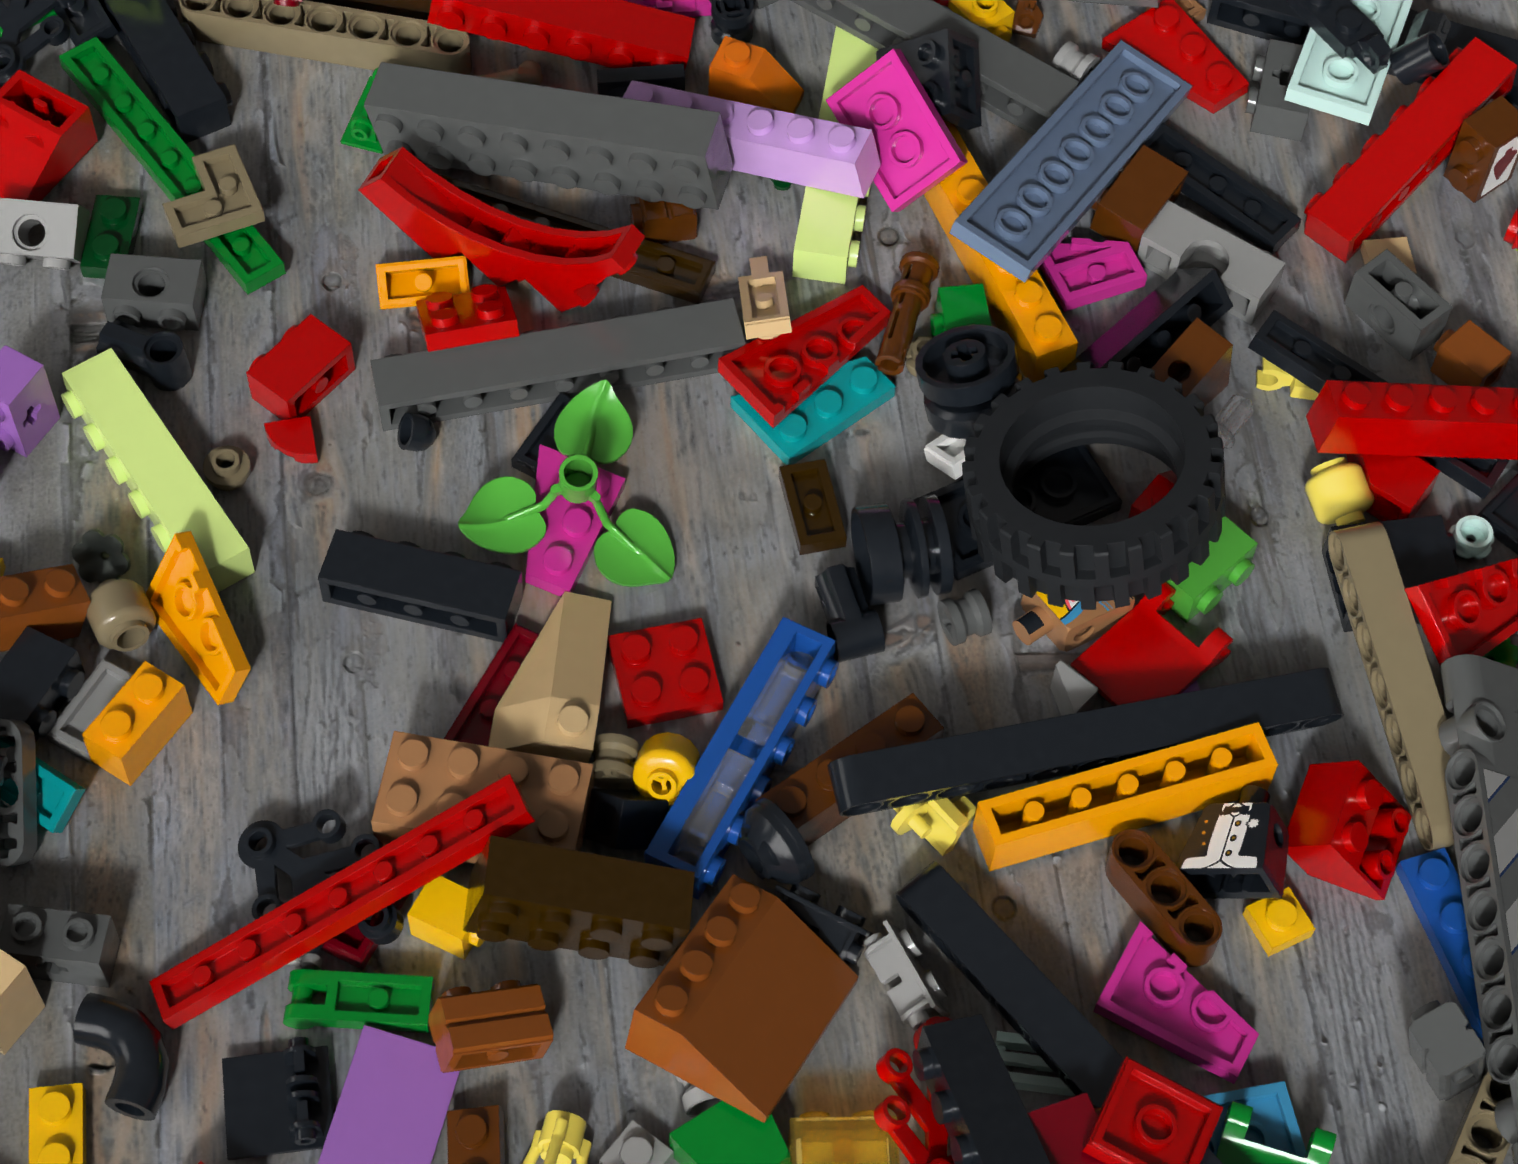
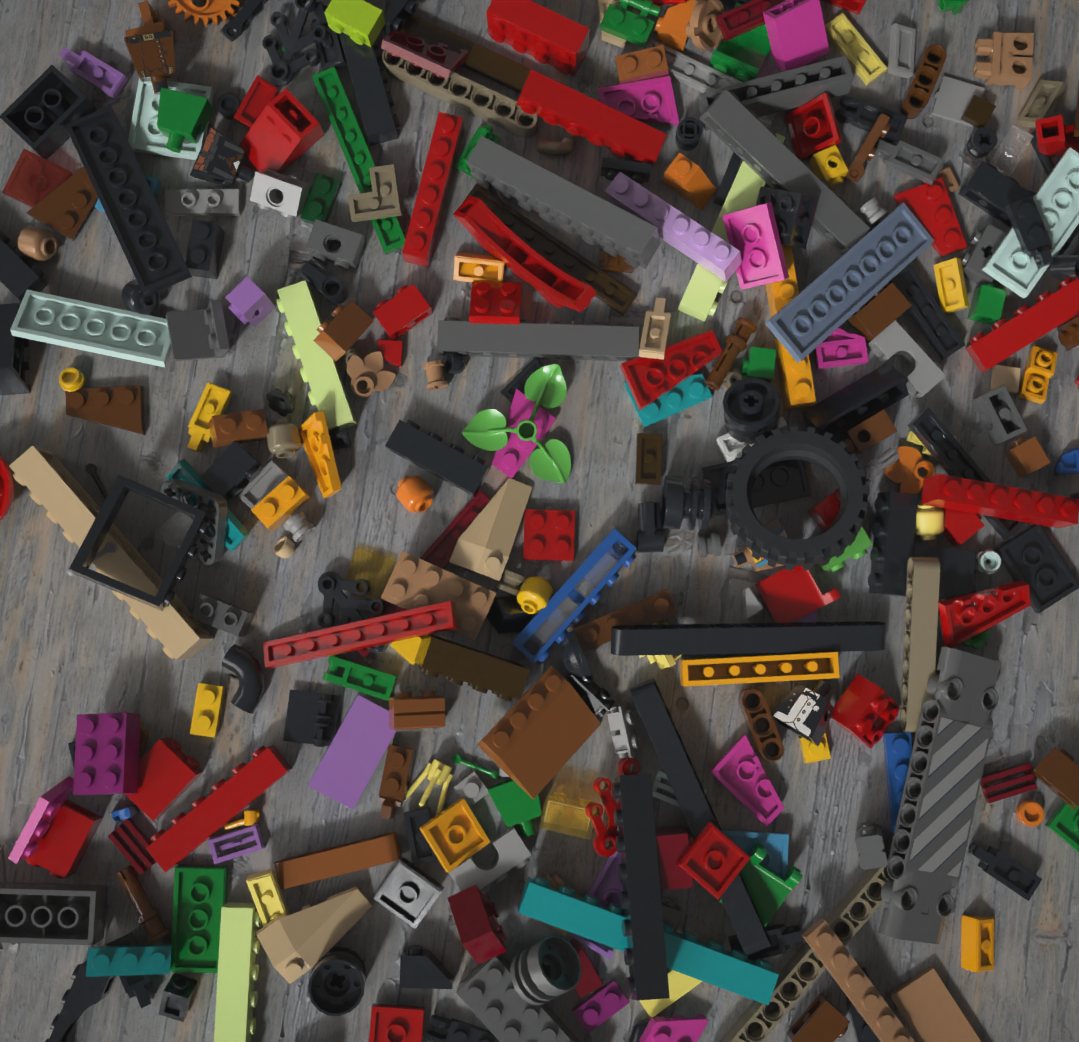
camera: 20 degrees right, 25 degrees up
(160, 803) = (284, 547): none -> tan hinge
(181, 757) = (299, 526): none -> light grey wheel
(196, 408) = (343, 330): none -> dark orange brick
(231, 589) = (340, 437): none -> black tile
(262, 475) = (371, 371): none -> medium nougat plate
(313, 179) = (433, 189): none -> red brick
(348, 796) = (371, 567): none -> clear yellow piece
(385, 456) = (435, 375): none -> medium nougat bush
(393, 653) = (415, 494): none -> orange head
(591, 1112) = (456, 758): none -> green hinge
(818, 65) = (727, 179): none -> black tile
(1244, 141) = (951, 285): none -> yellow plate
(1277, 430) = (906, 470): none -> orange plate
(1292, 540) = (892, 542): none -> black brick
(1313, 156) = (987, 304): none -> green brick
(1437, 242) = (1036, 374): none -> light orange slope

